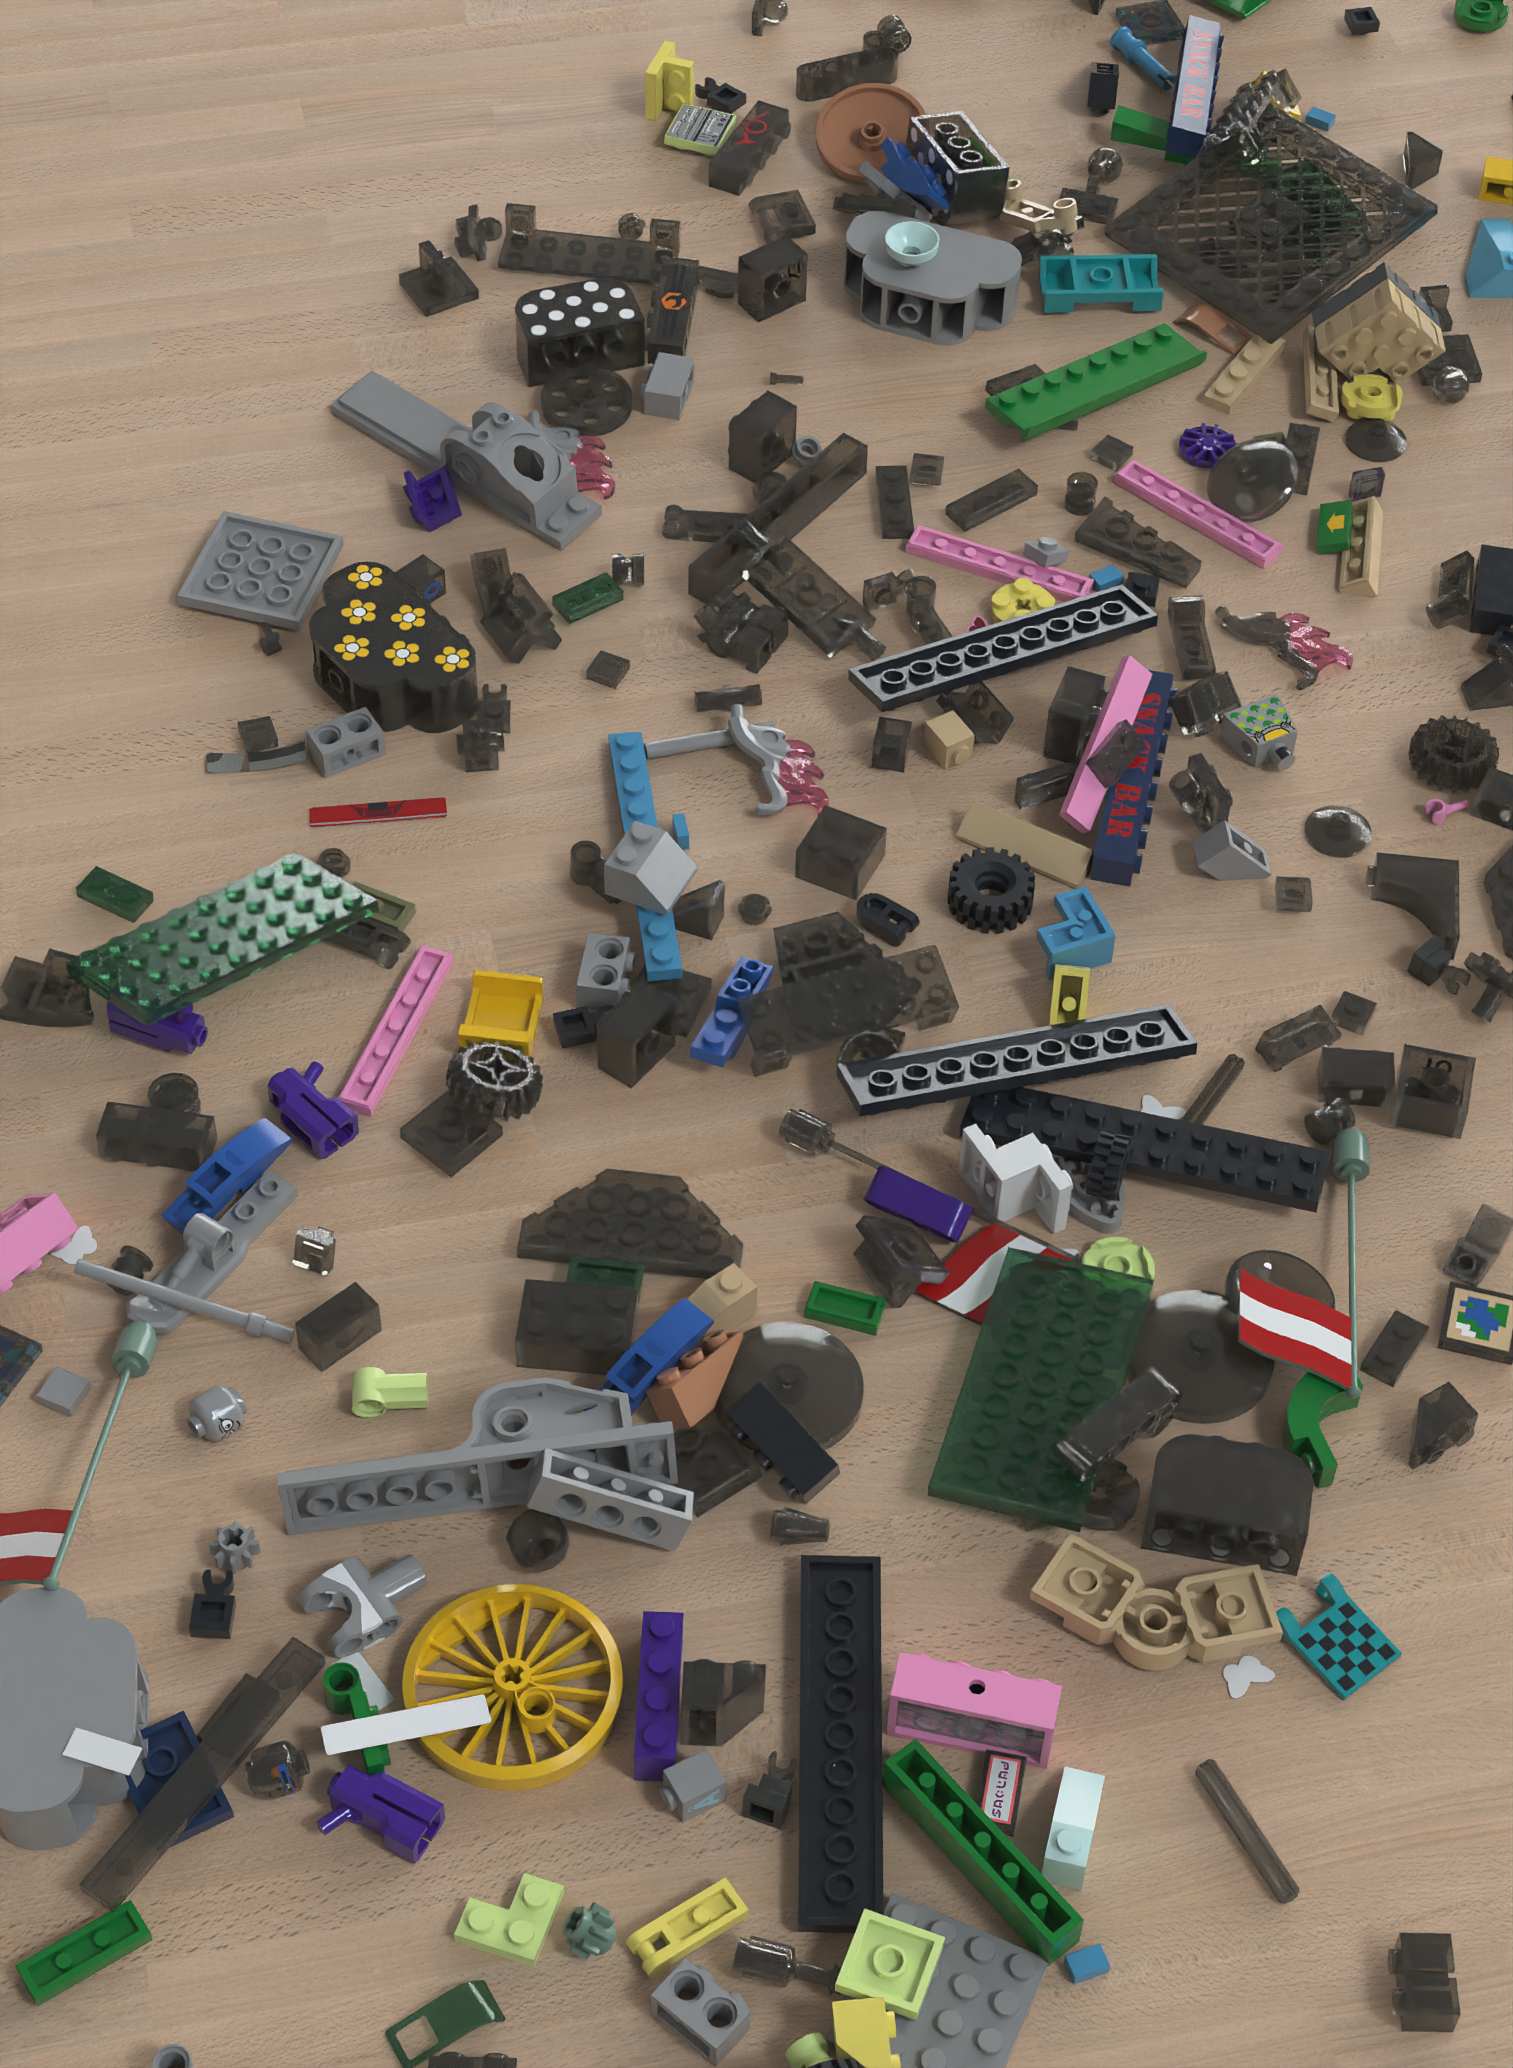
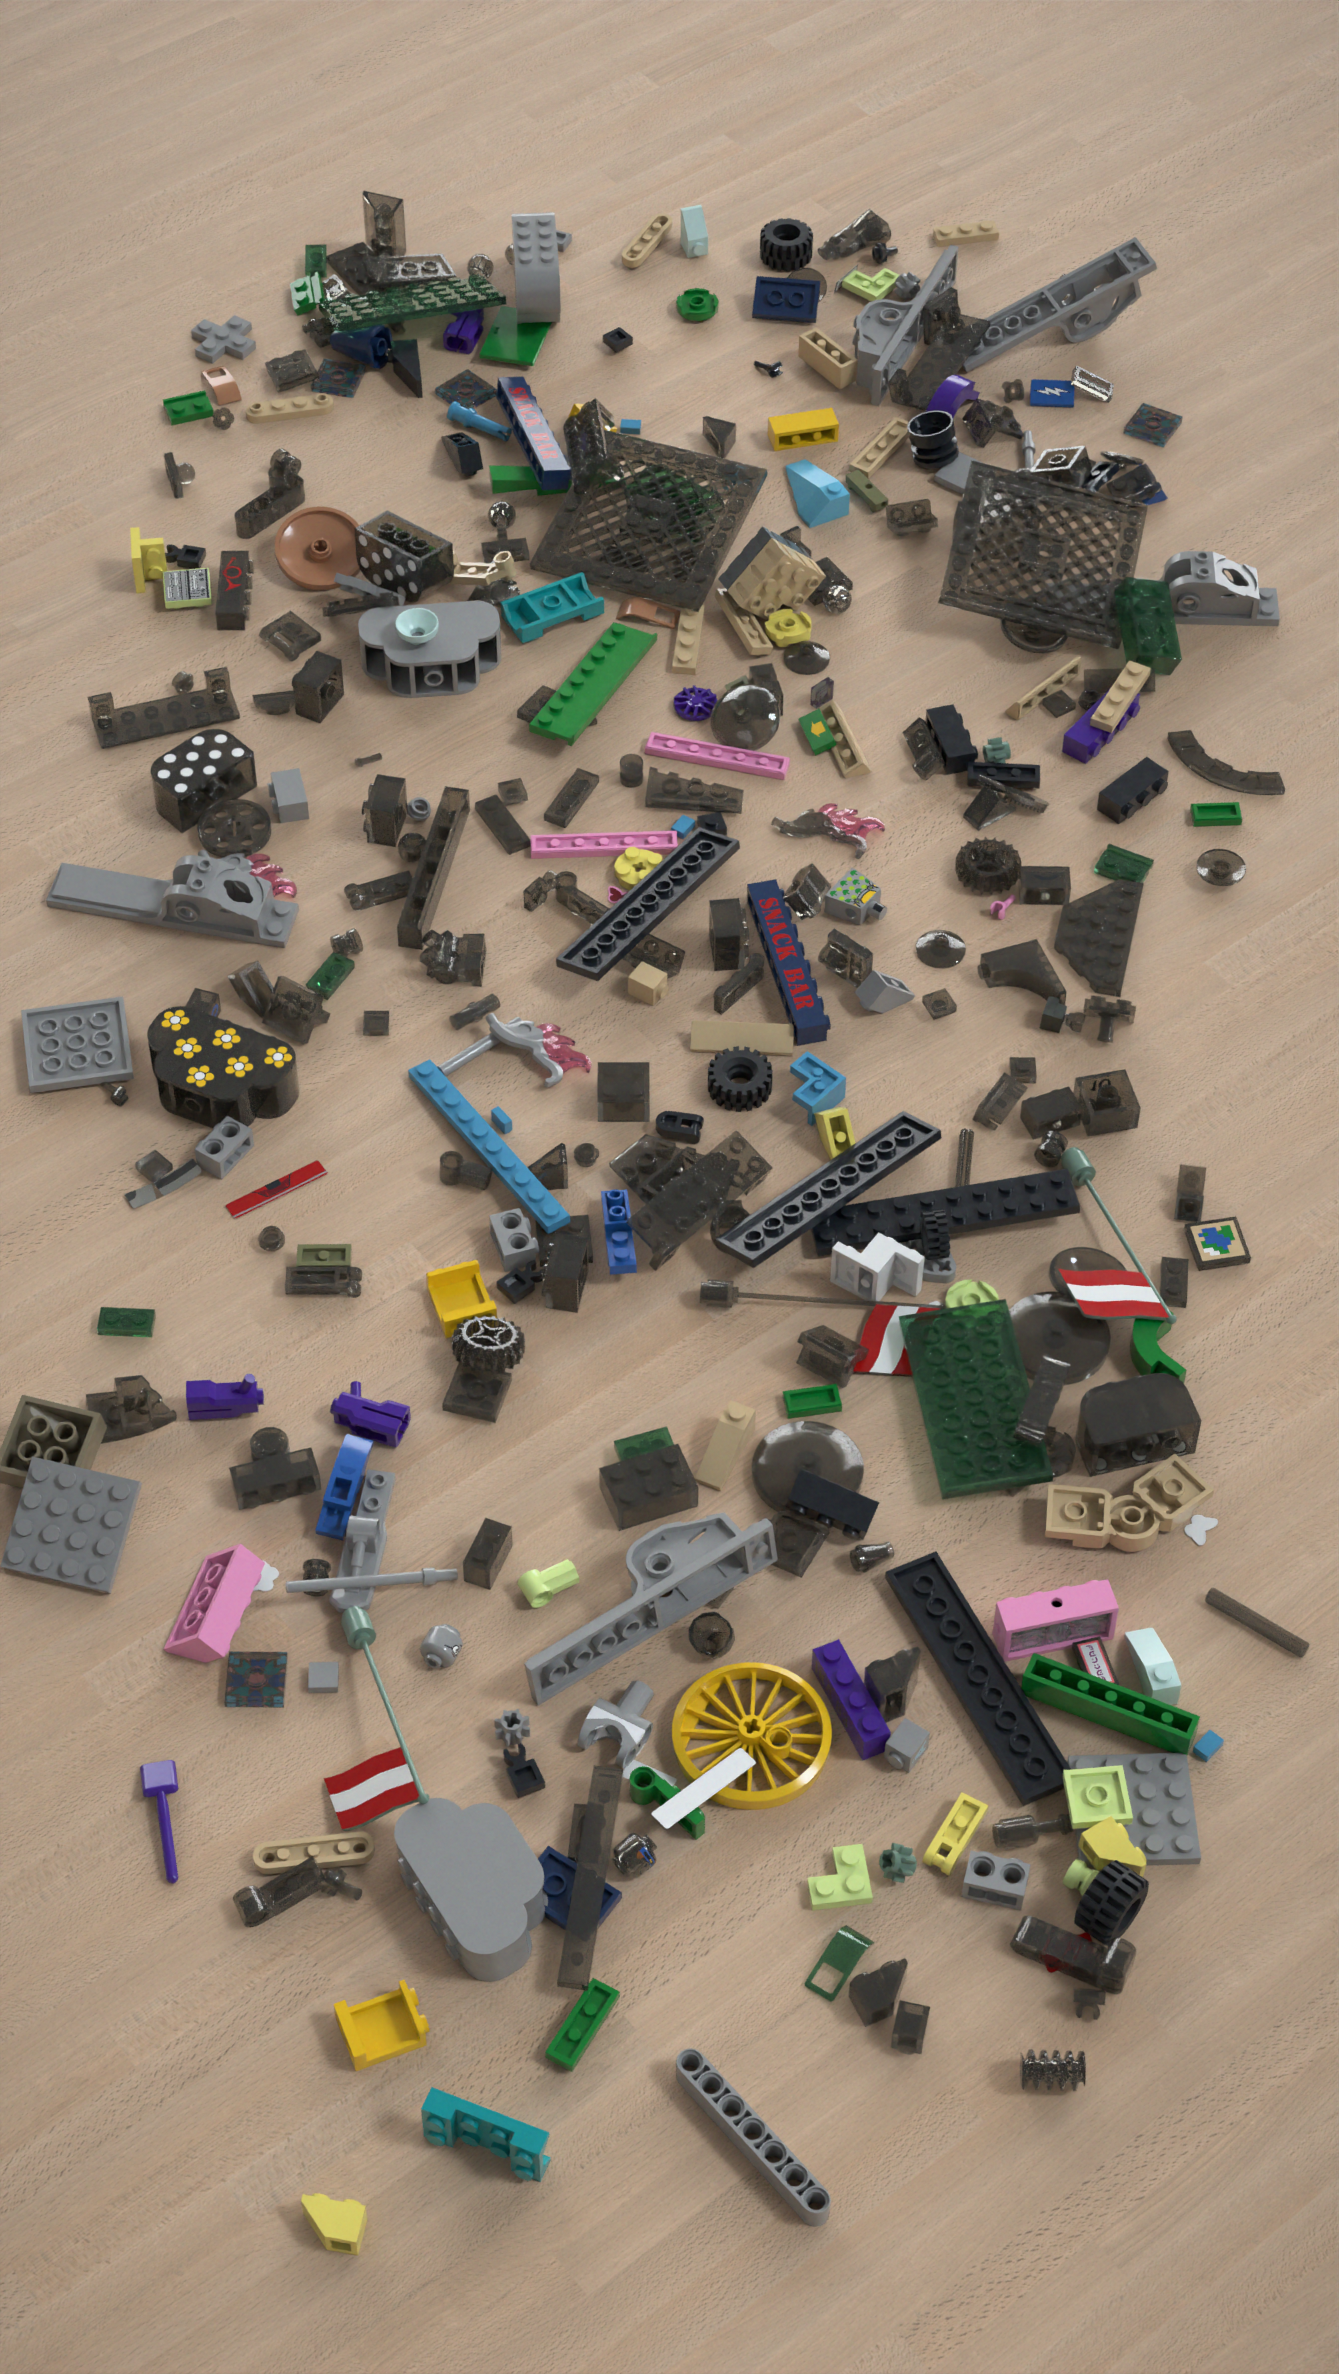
camera: 25 degrees left, 0 degrees up
(102, 1751) = (529, 1888): white sticker -> none
(221, 938) = (236, 1321): clear green plate -> none
(315, 1250) = (437, 1509): clear smoke tile -> none
(385, 1807) = (719, 1847): dark purple piece -> none
(396, 1030) = (391, 1336): bright pink tile -> none
(432, 498) = (171, 942): dark purple bracket -> none
(437, 282) = (64, 777): clear smoke bracket -> none
(475, 233) = (79, 722): clear smoke hips -> none
(480, 745) = (324, 1112): clear smoke brick -> none
(495, 707) = (314, 1085): clear smoke plate -> none
(610, 1499) = (747, 1587): light grey brick -> none
(634, 1221) = (639, 1401): clear smoke plate -> none
(648, 869) = (508, 1154): light grey slope -> none
(657, 1351) = (716, 1479): blue slope -> none
(672, 307) = (257, 734): clear smoke brick -> none
(693, 1386) = (750, 1491): nougat slope -> none
(772, 1796) = (959, 1730): pearl dark grey piece -> none
(808, 594) = (490, 914): clear smoke plate -> none
(891, 744) = (610, 1002): clear smoke brick -> none
(911, 177) = (380, 574): blue slope -> none
(919, 1203) = (821, 1310): dark purple beam -> none
(1045, 551) = (632, 822): light grey plate -> none
(1111, 452) = (632, 732): clear smoke tile -> none
(1115, 753) = (774, 950): clear smoke plate -> none
(1120, 704) = (762, 946): bright pink tile -> none
(1152, 1106) = (929, 1185): white sticker -> none
(1190, 636) = (768, 850): clear smoke plate -> none
(1341, 1641) = (1246, 1481): teal flag -> none
(1440, 1422) = (1229, 1318): clear smoke slope -> none

